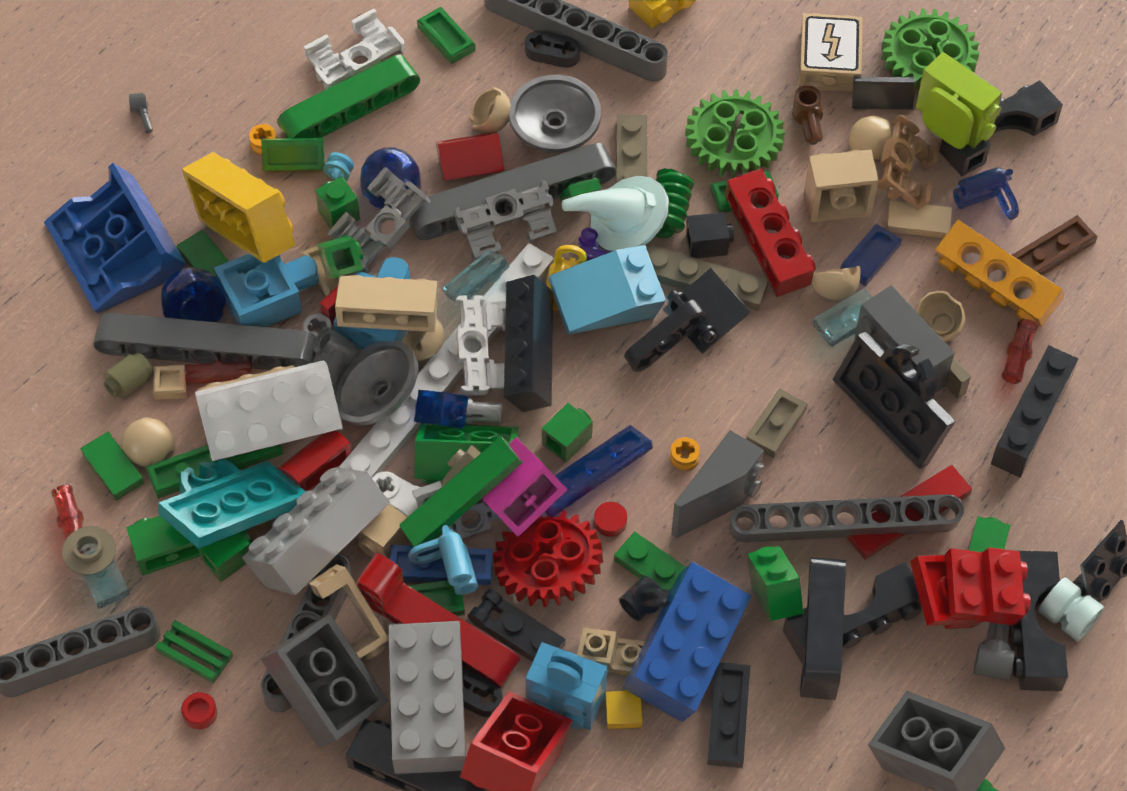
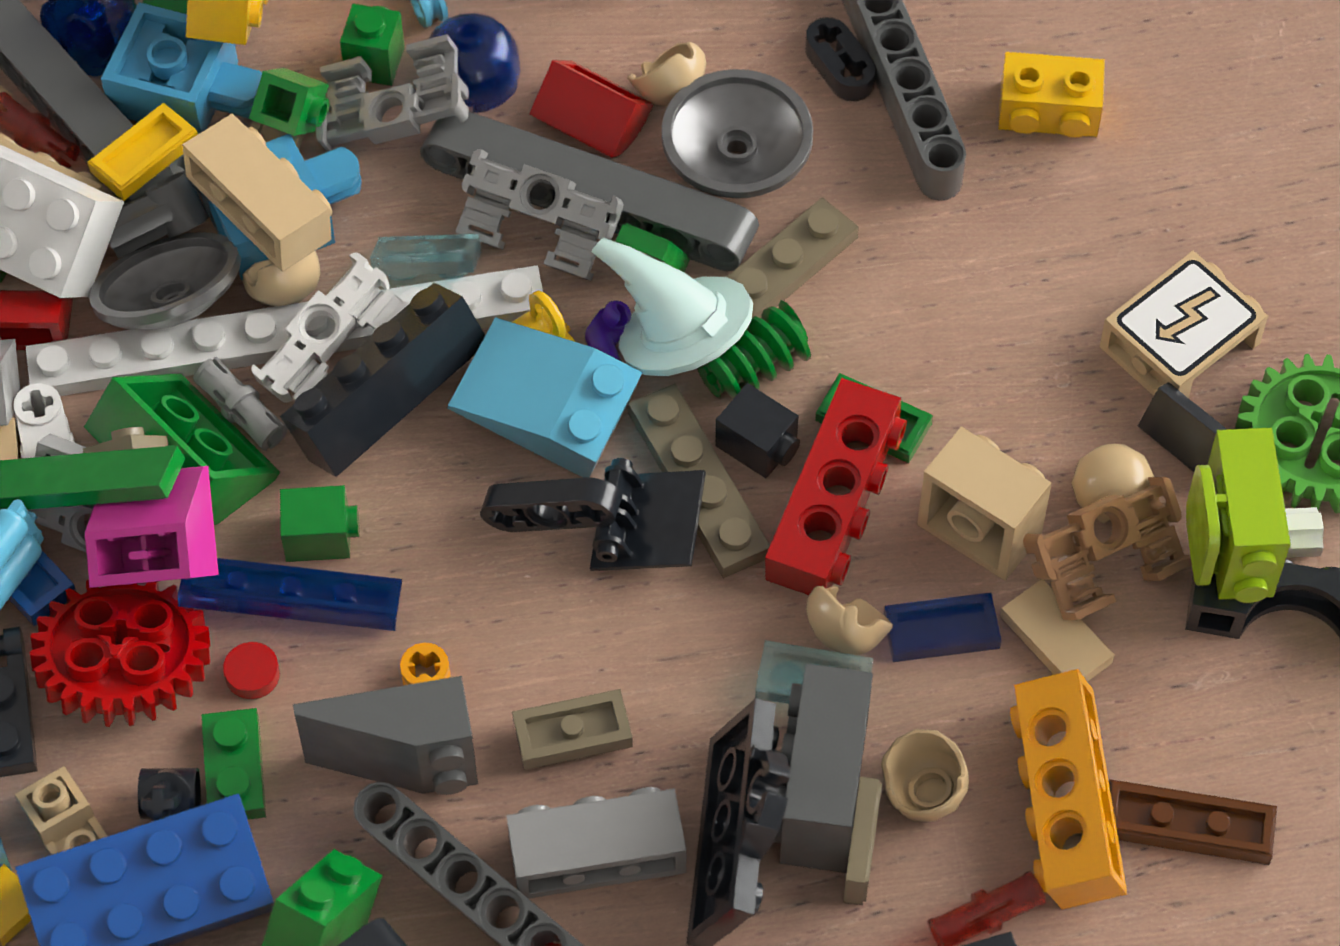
camera: 45 degrees right, 0 degrees up
(296, 334) = (142, 151): none -> yellow tile
(441, 409) = (199, 373): clear blue bracket -> none
(717, 122) = (939, 335): bright green gear -> none
(808, 112) = (1062, 387): reddish brown axle -> none
(842, 456) = (597, 842): none -> light grey brick
(987, 186) = (1184, 664): clear blue piece -> none

